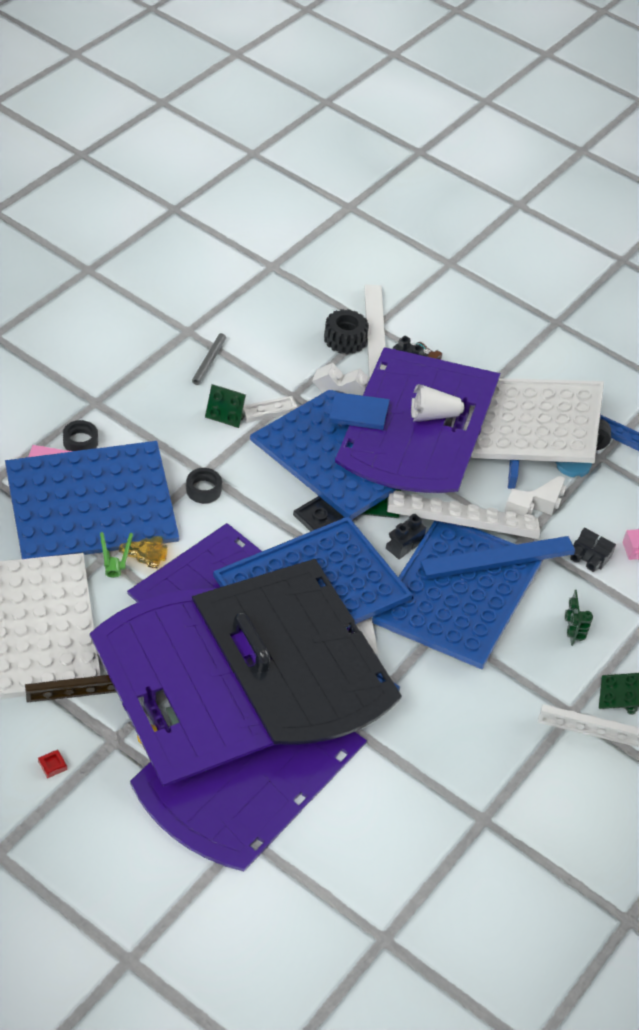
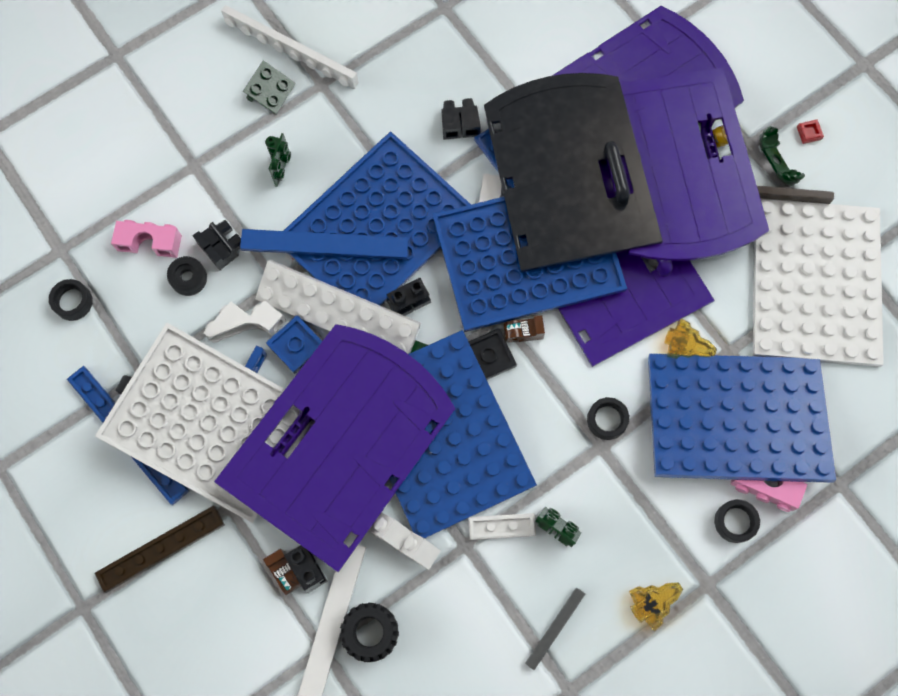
camera: 155 degrees left, 25 degrees up
(73, 709) = (768, 143): none -> dark green piece
(112, 564) = (727, 325): bright green plant -> none
(138, 380) = (654, 603): none -> clear yellow rock
(287, 533) = (524, 330): none -> reddish brown leg
(359, 410) = (405, 467): blue tile -> none
(421, 695) = (451, 119): none -> black hips
(434, 404) = (320, 436): white cone -> none
(486, 491) = (294, 344): none -> blue plate
(526, 354) = (159, 549): none -> dark brown tile
(606, 515) = (182, 265): none -> black tyre

